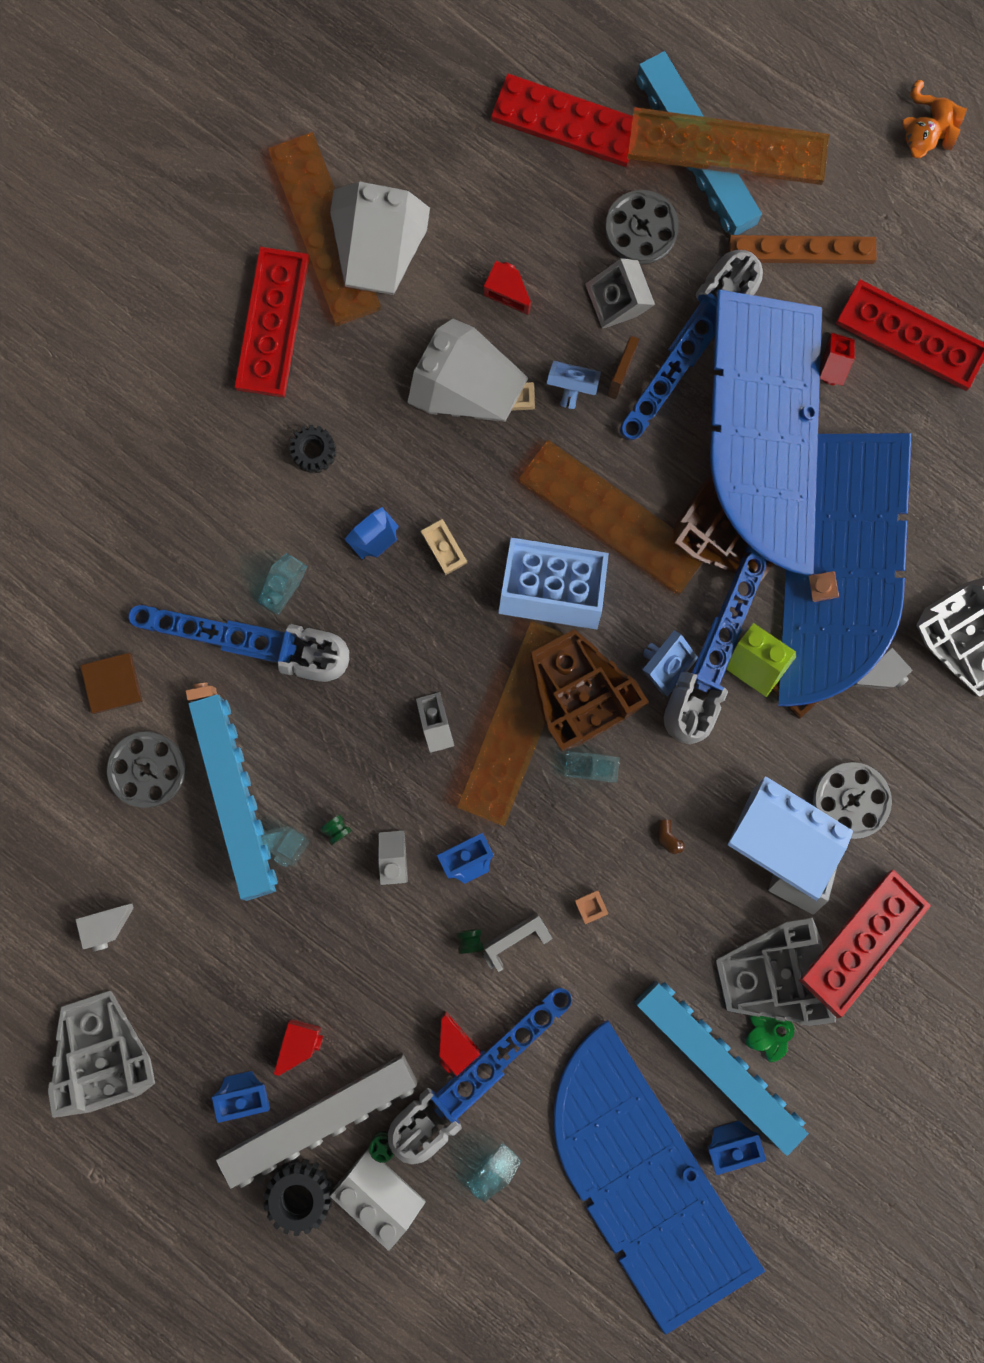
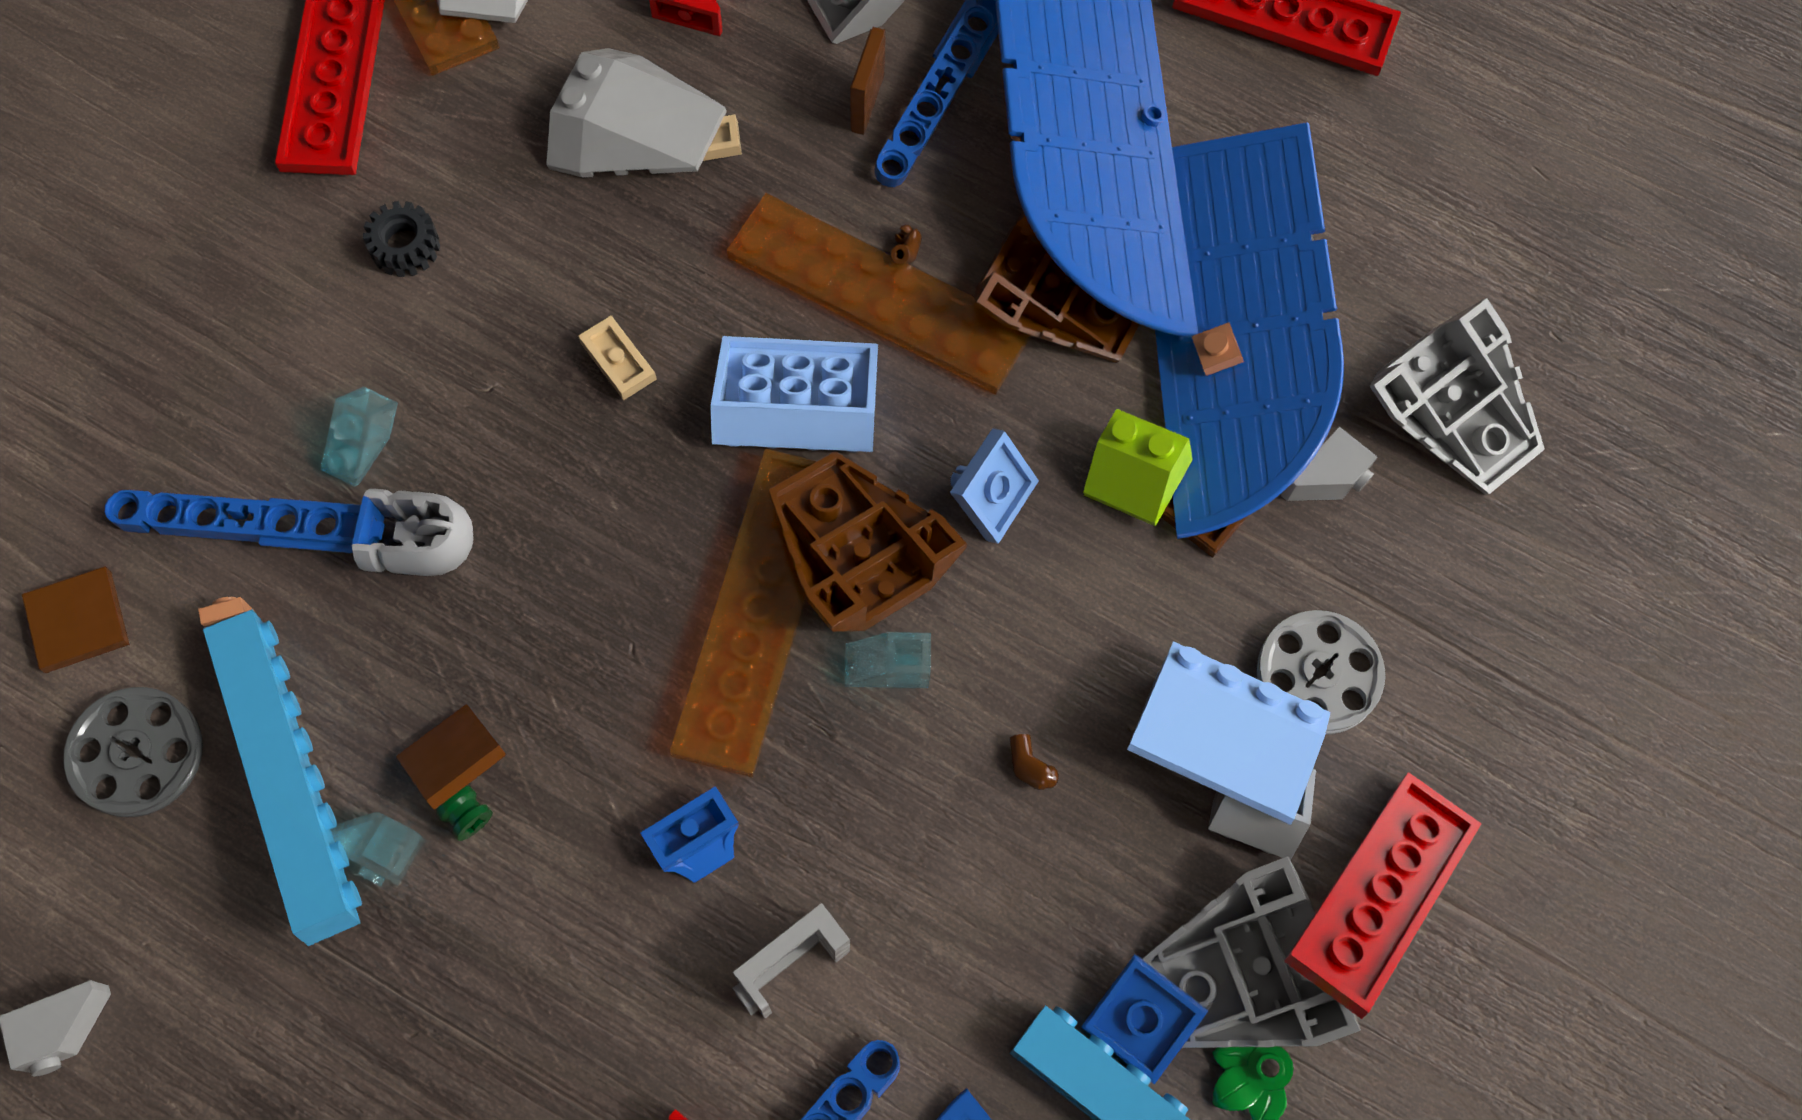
camera: 10 degrees left, 15 degrees down
(330, 796) = (450, 756): none -> reddish brown tile
(373, 534) = (500, 349): blue slope -> none
(392, 858) = (565, 852): light grey slope -> none
(434, 722) = (622, 622): light grey slope -> none
(469, 941) = (709, 976): dark green wheel -> none
(573, 380) = (794, 109): medium blue tile -> none
(591, 907) = (914, 893): nougat plate -> none
(635, 491) = (910, 245): none -> reddish brown arm
(690, 726) = (1056, 501): piece -> none
(714, 994) = (1145, 1018): none -> blue tile
(837, 359) = (1182, 51): red slope -> none

